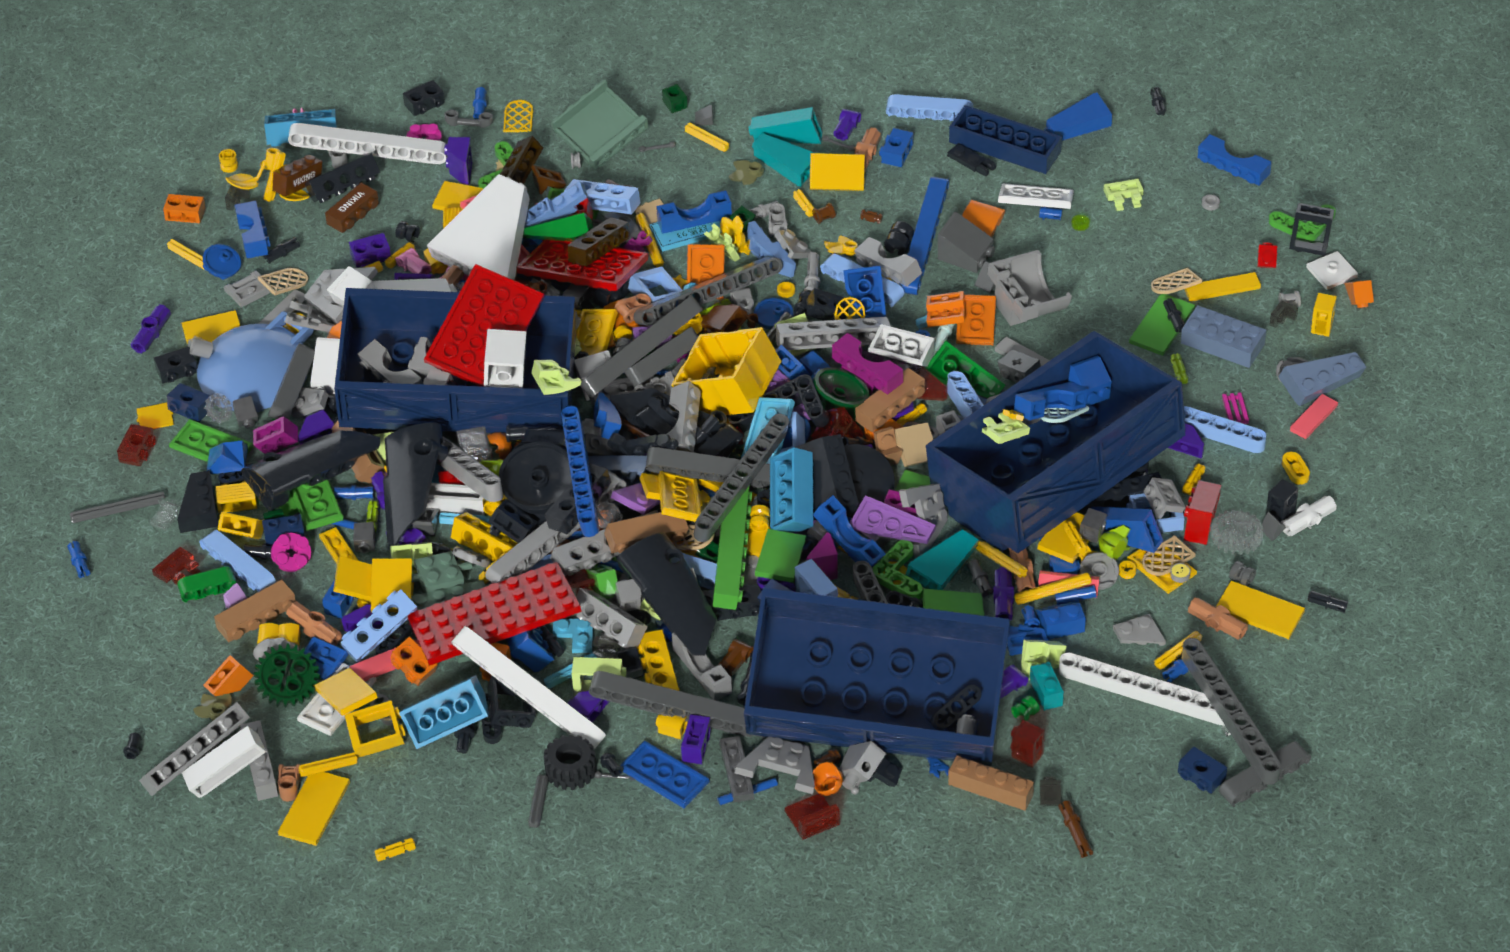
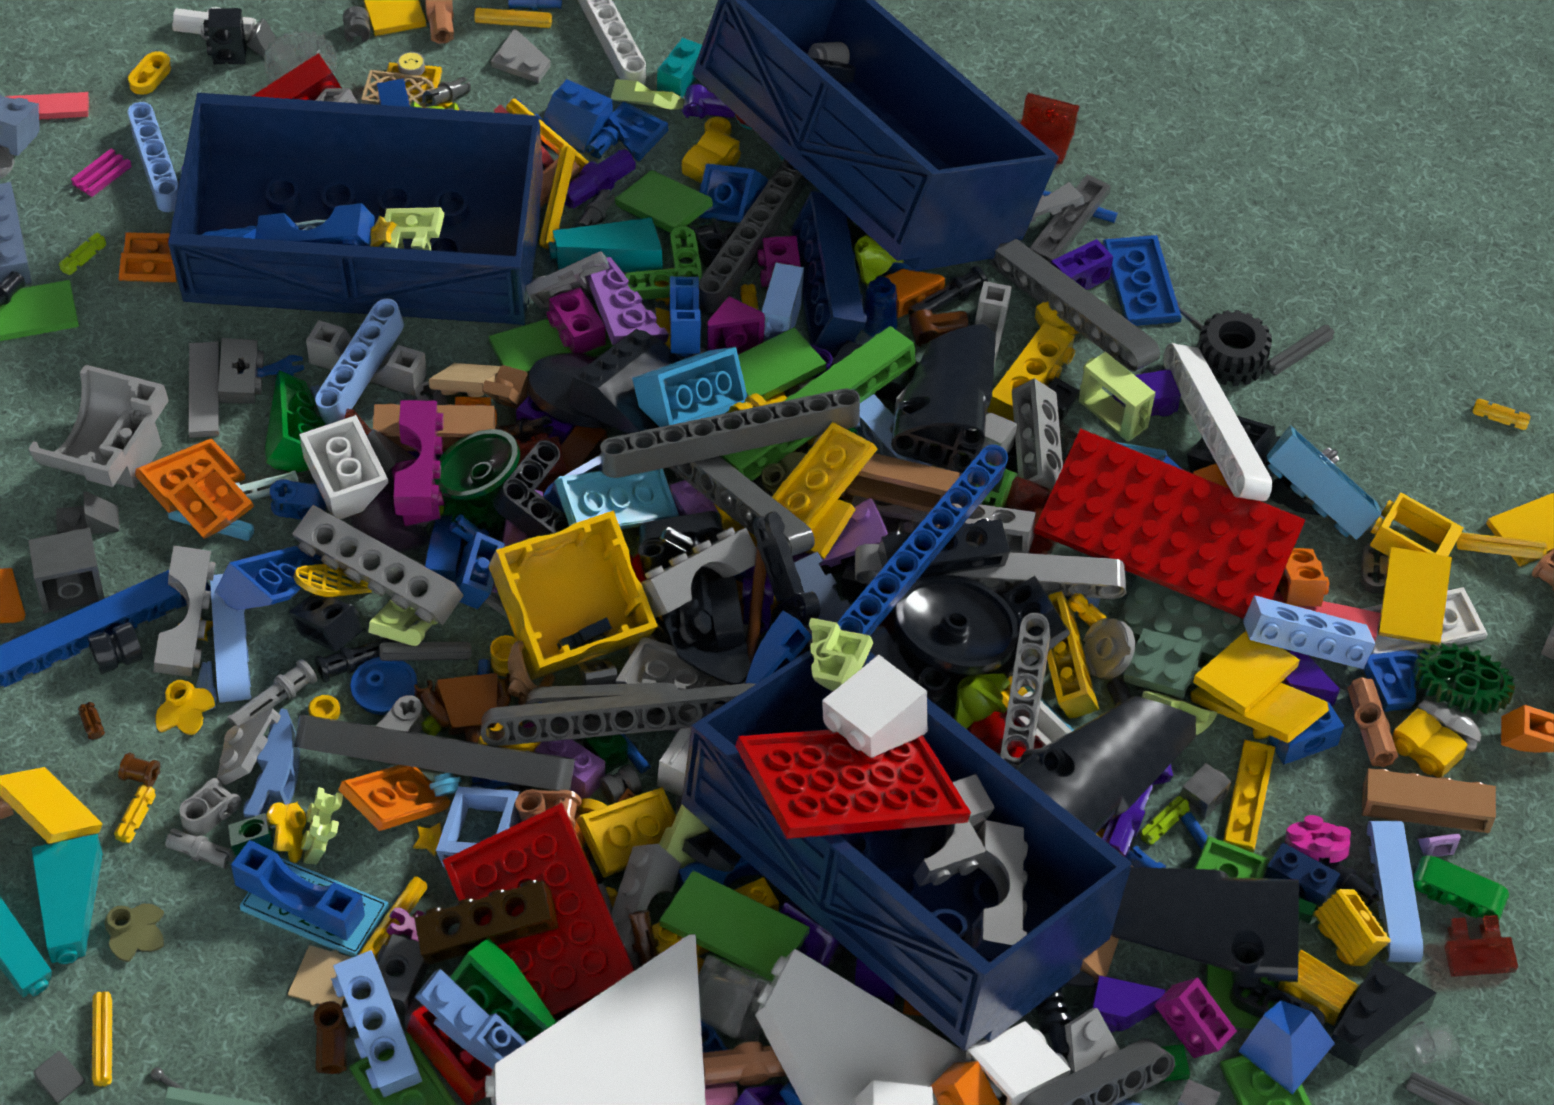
camera: 140 degrees left, 5 degrees up
(609, 761) = (1187, 328): black pin -> none
(1140, 573) = (446, 92): none -> dark grey pin

